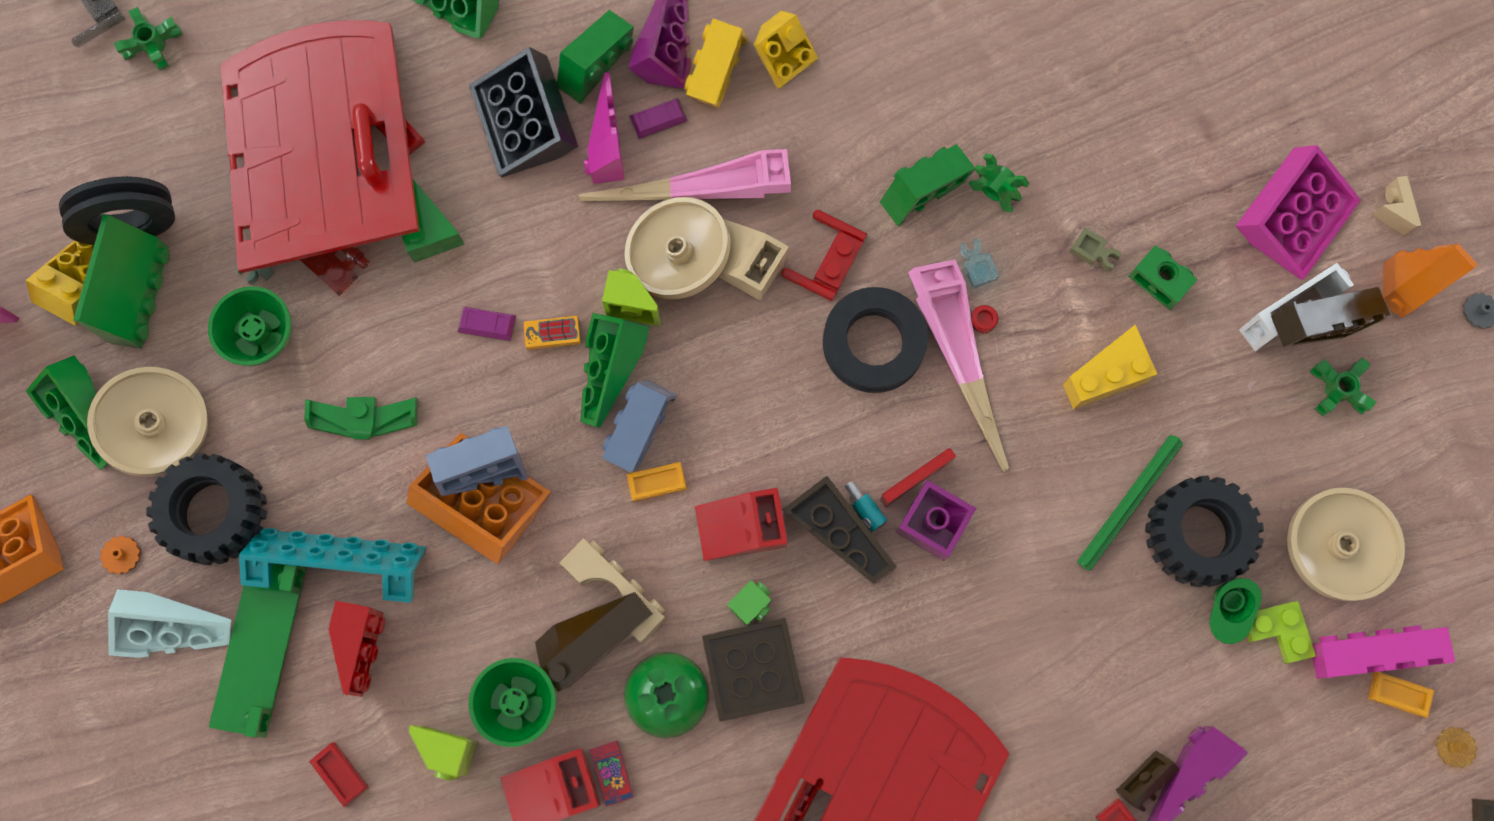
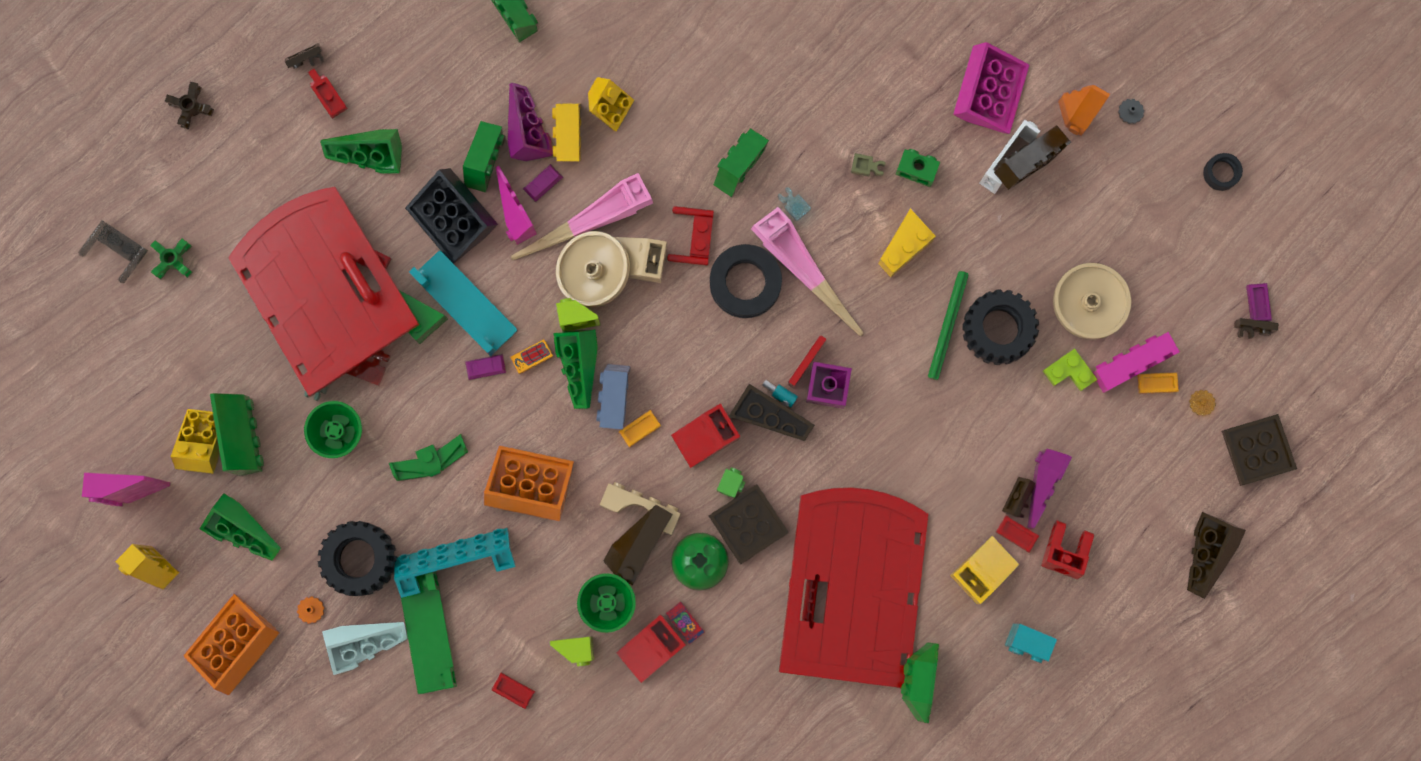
camera: 20 degrees left, 5 degrees up
(85, 204) = (222, 378): black tyre -> none
(147, 421) = (292, 517): tan dish -> none
(353, 641) = (488, 602): red slope -> none
(476, 461) = (520, 460): sand blue wedge -> none
(493, 231) = (464, 302): none -> teal bracket
(984, 319) = (811, 239): red tile -> none
(998, 183) = (787, 145): green pin -> none
(1234, 610) = (1036, 370): green piece -> none
(1350, 379) = (1069, 202): green pin -> none
(1402, 210) = (1058, 65): tan slope -> none

